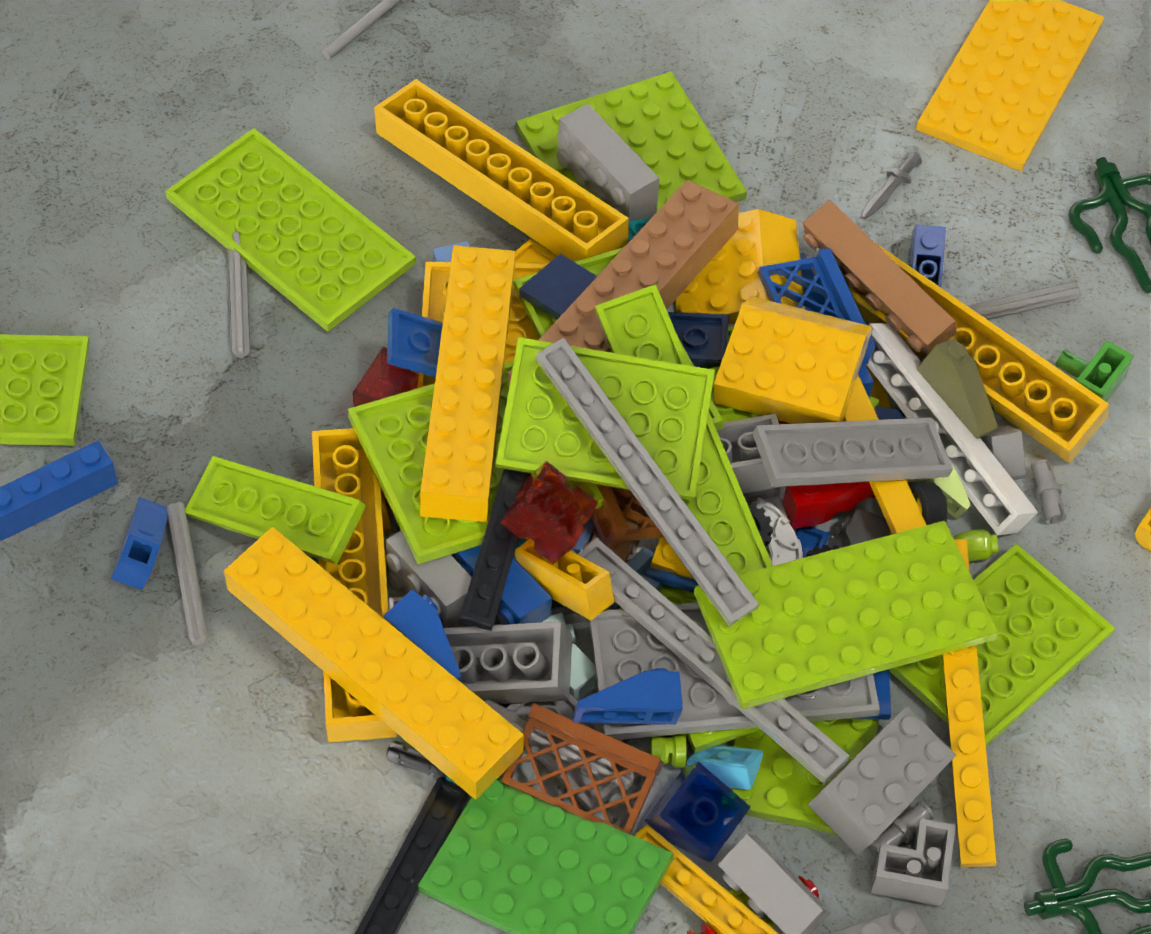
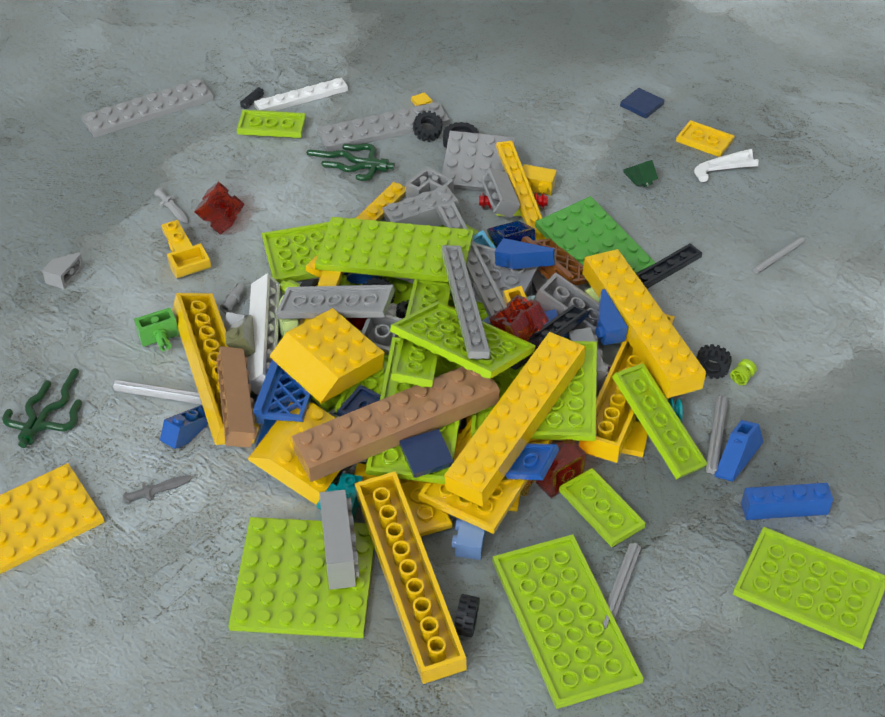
camera: 150 degrees left, 10 degrees down
(180, 699) = (743, 372): none -> lime wheel
(233, 680) = (715, 354): none -> black tyre
(302, 382) = (602, 507): none -> lime plate
(404, 168) = (466, 615): none -> black tyre

